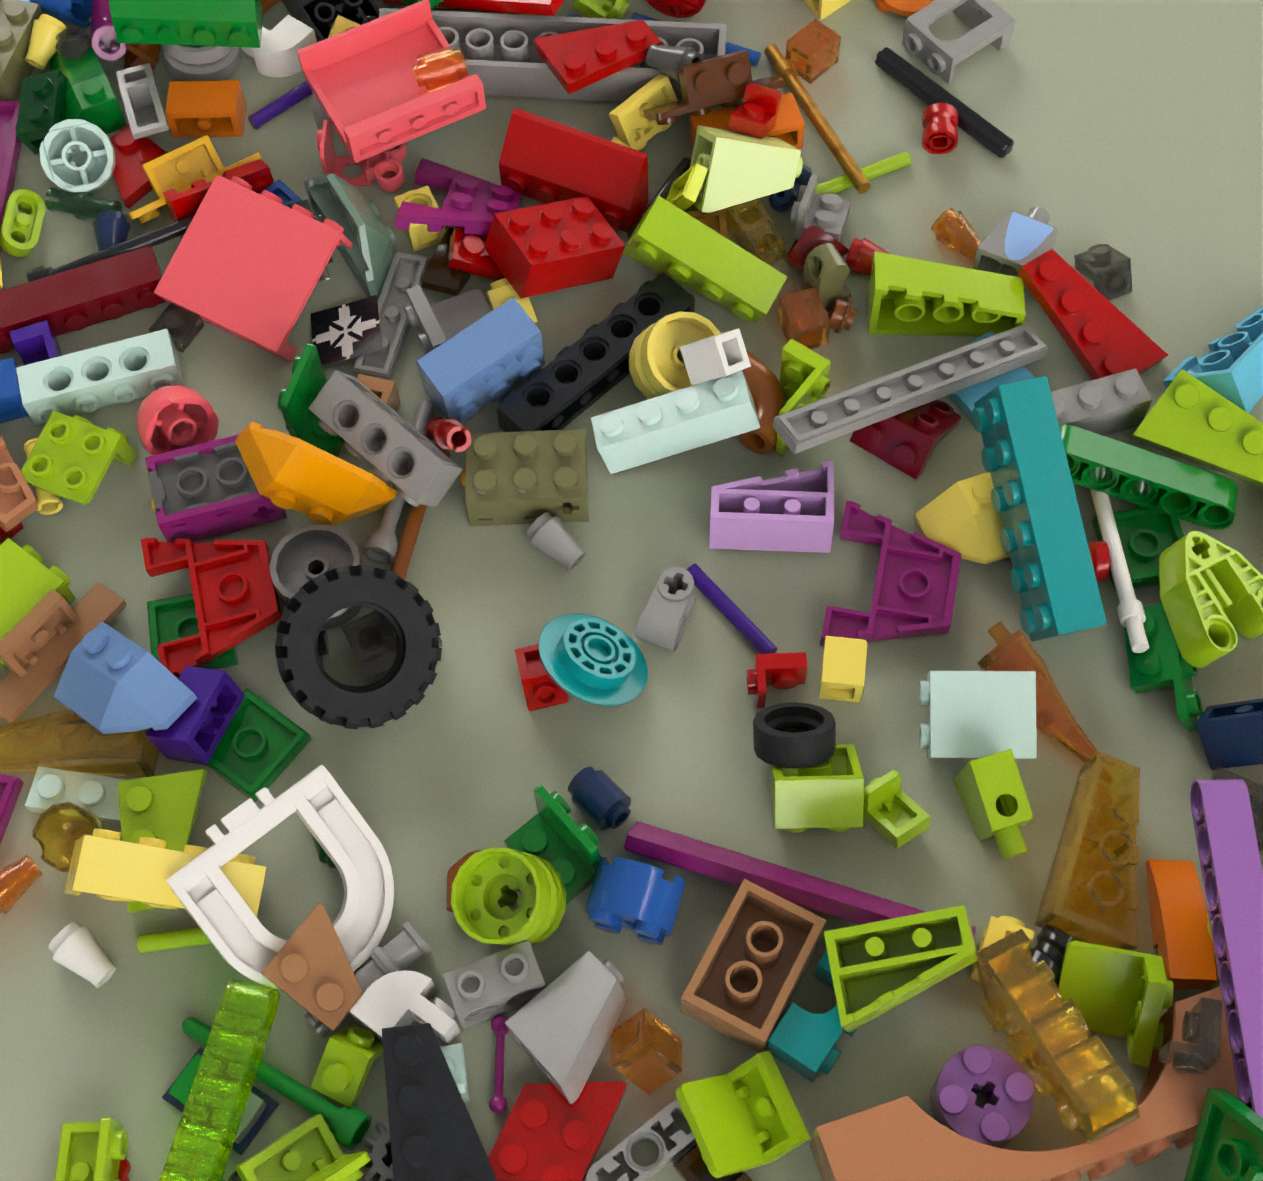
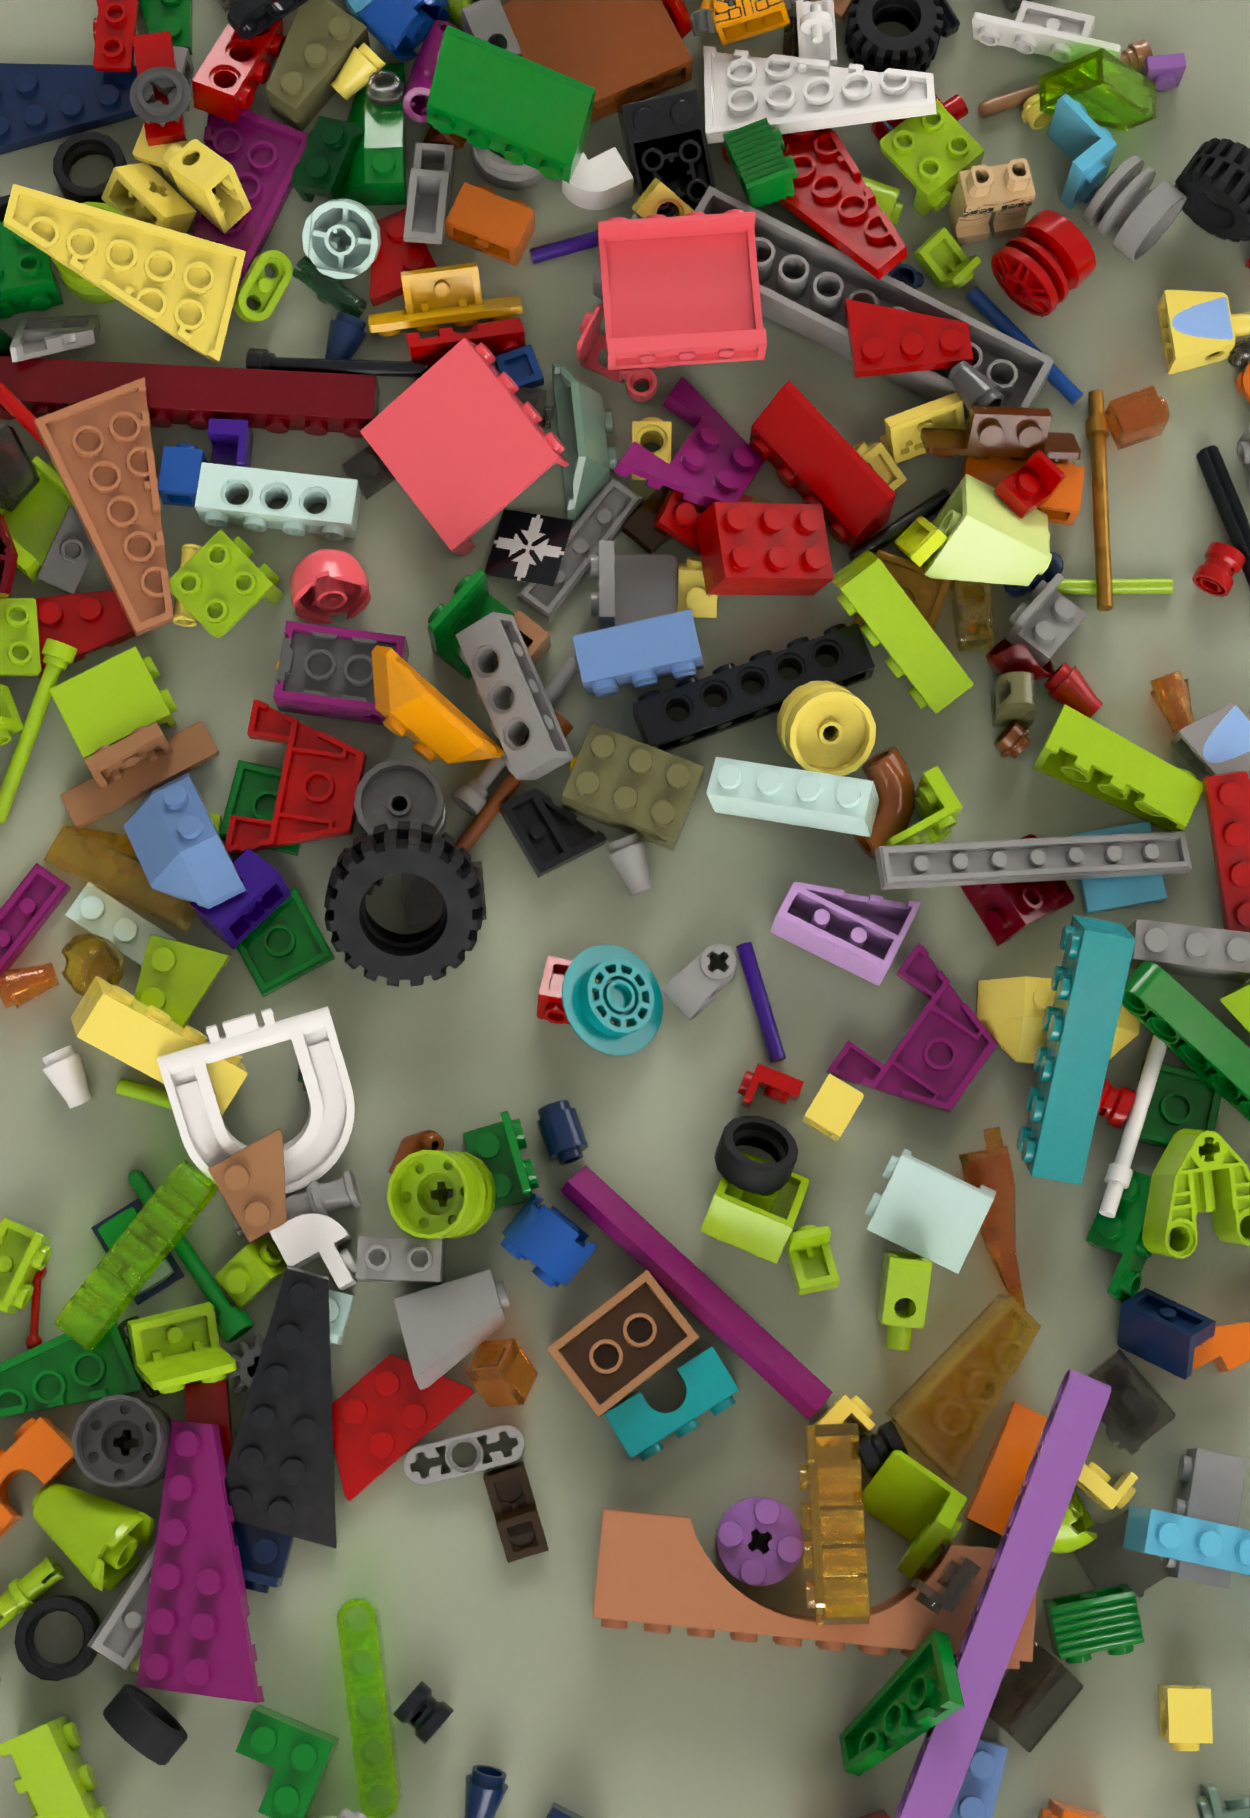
camera: 20 degrees right, 15 degrees up
(440, 68) = (734, 302): clear orange brick -> none
(449, 434) = (577, 713): red pin -> none
(465, 546) = (547, 832): none -> black wing
(498, 1102) = (363, 1357): magenta hinge -> none
(715, 356) = (853, 756): white brick -> none
(742, 1117) = (553, 1465): lime bracket -> none
(804, 318) = (972, 730): clear orange brick -> none
(895, 959) = (734, 1401): lime wedge -> none

